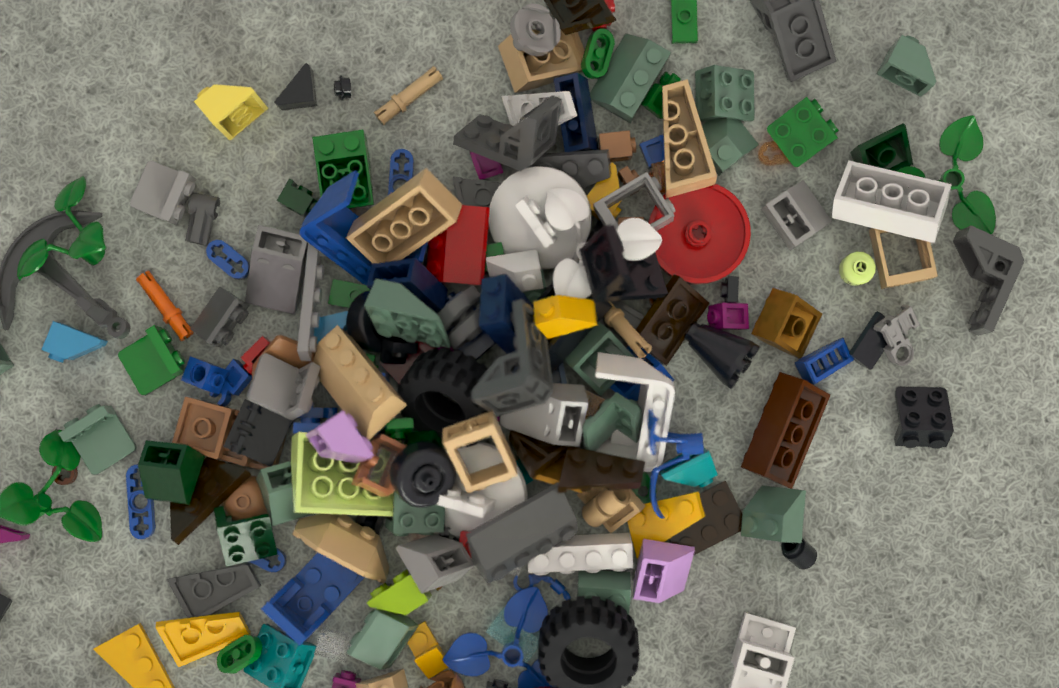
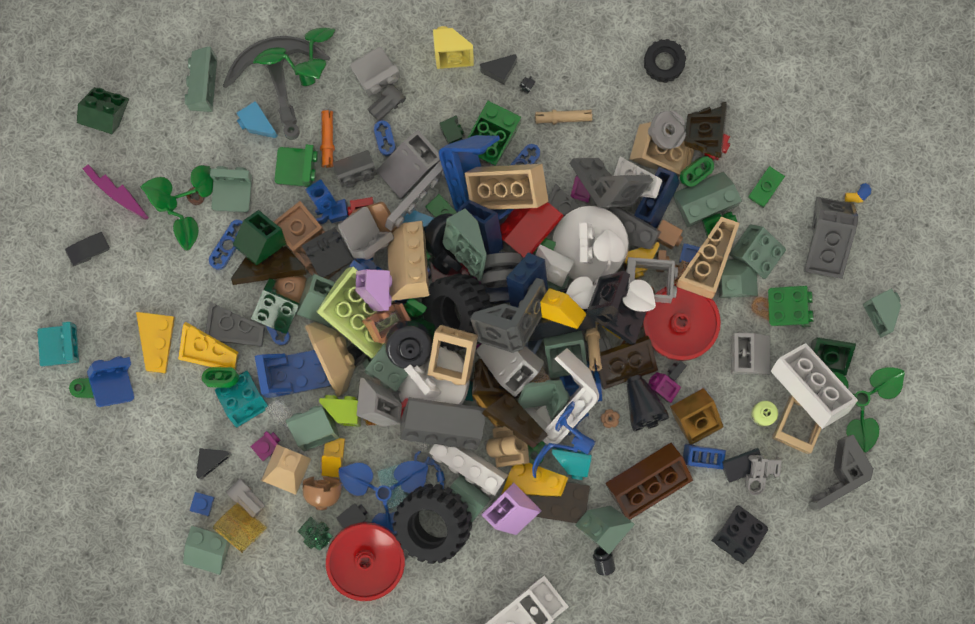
camera: 35 degrees right, 5 degrees down
(689, 395) = (610, 413): none -> medium nougat plate

